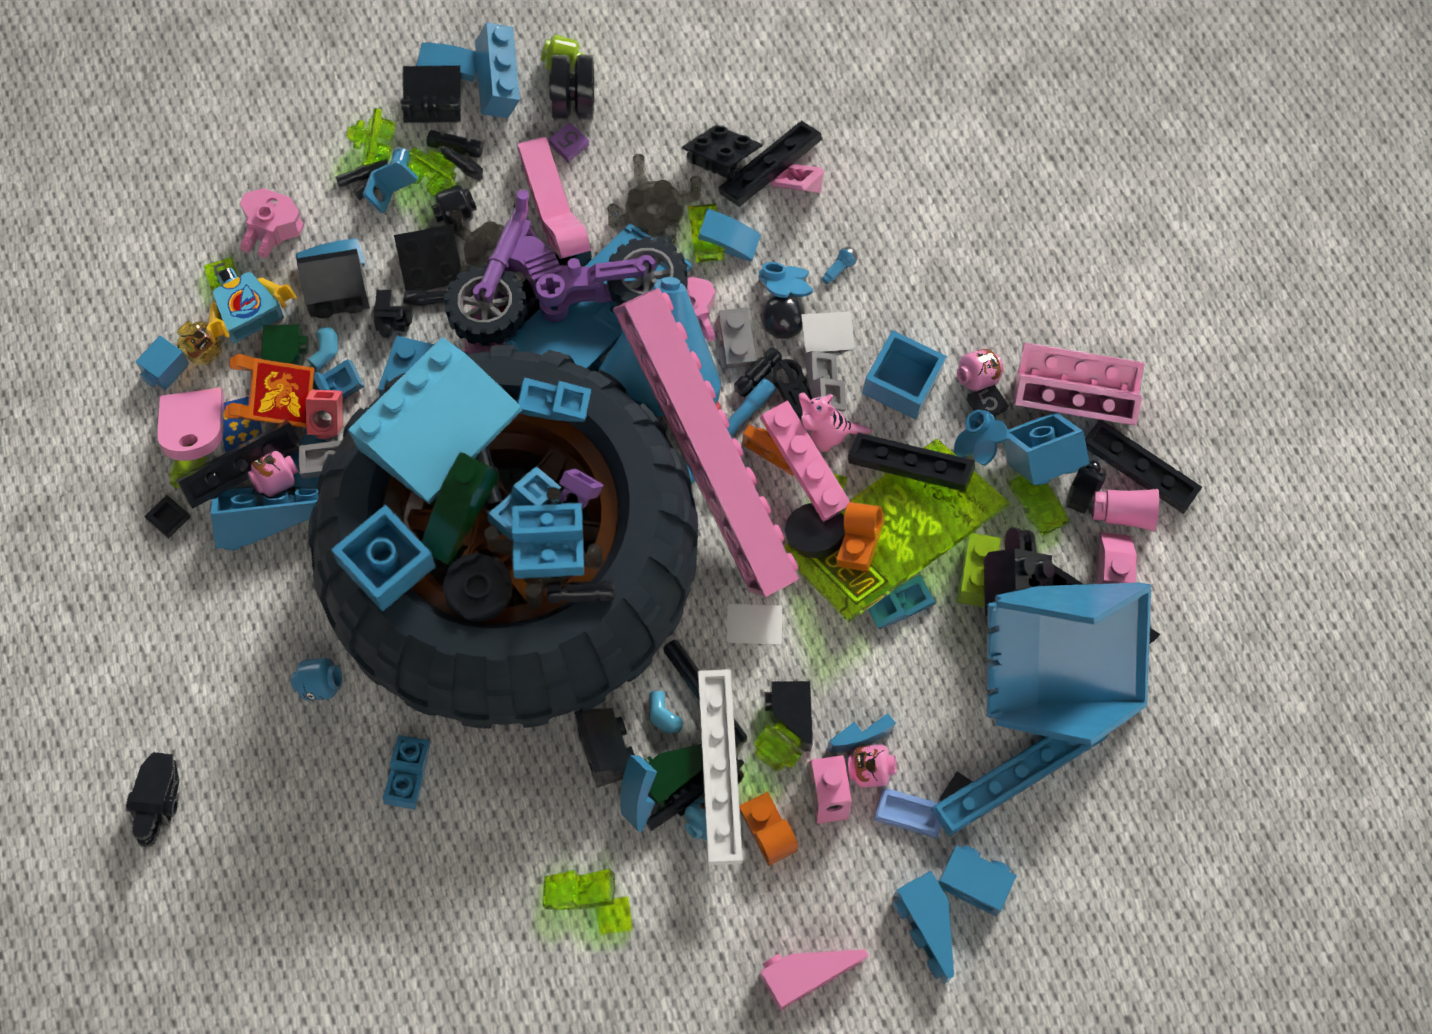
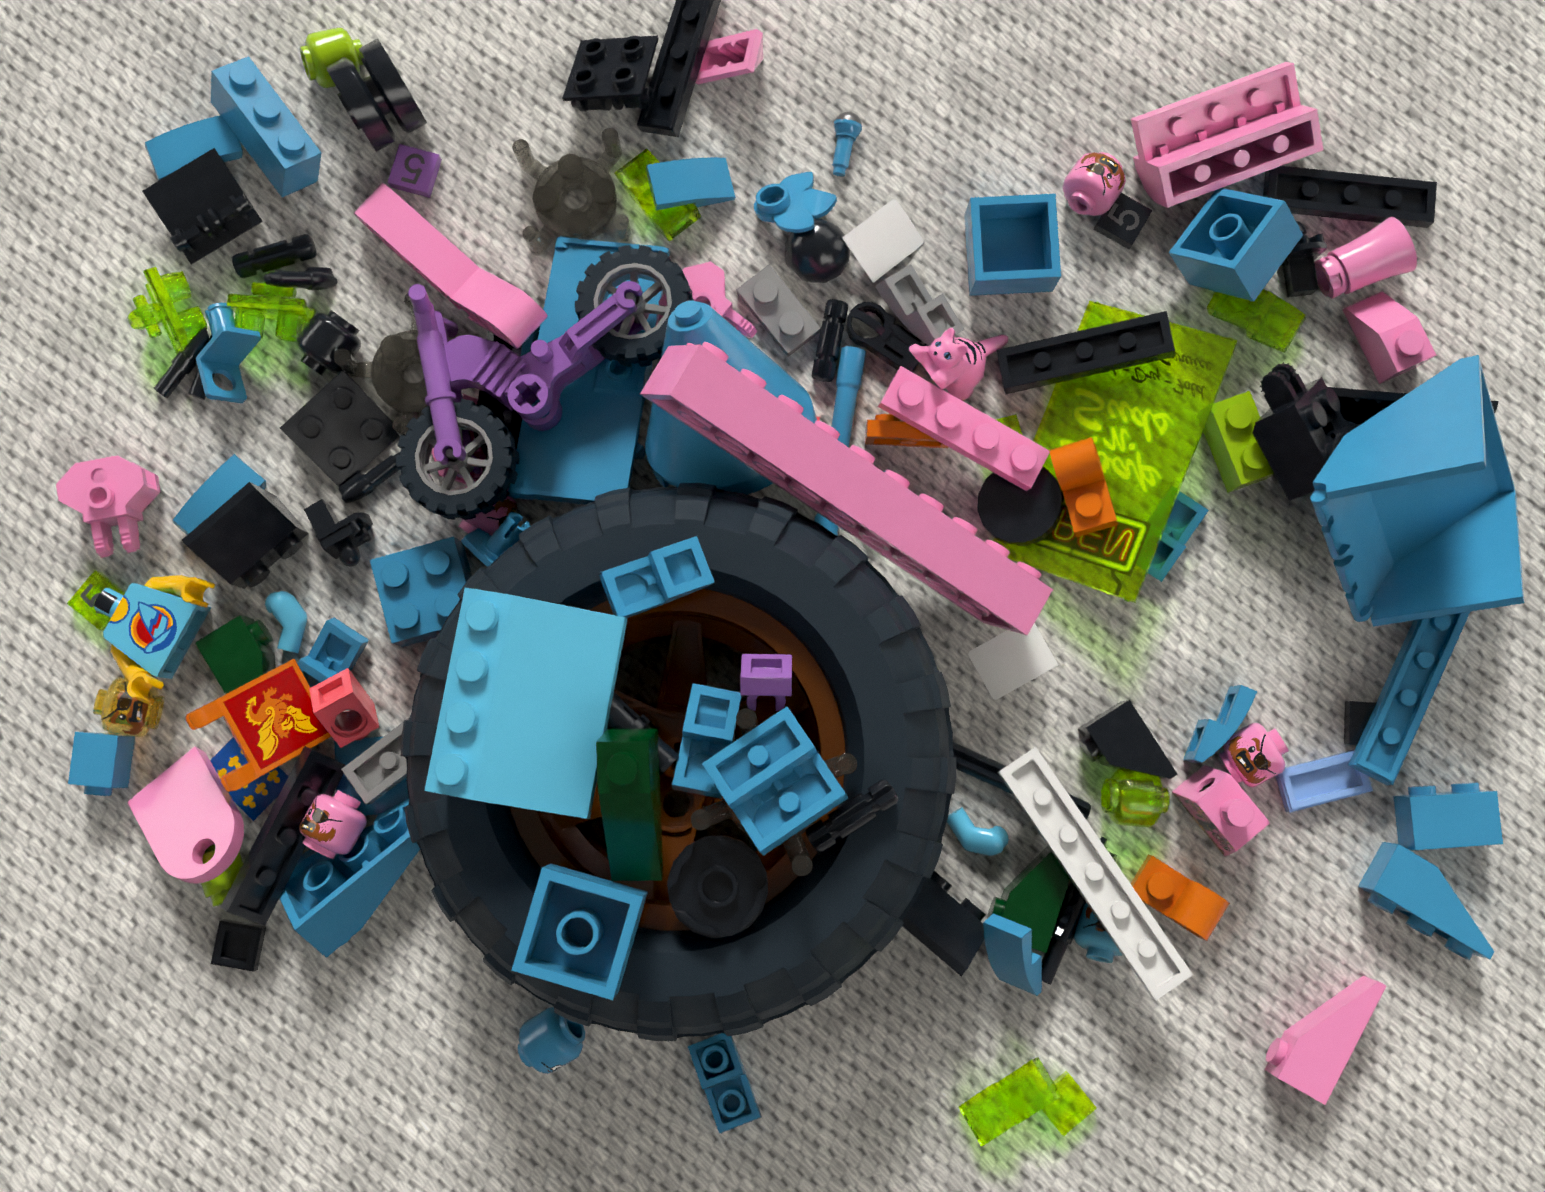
camera: 25 degrees left, 15 degrees up
(981, 437) = (1151, 276): dark azure plate -> none

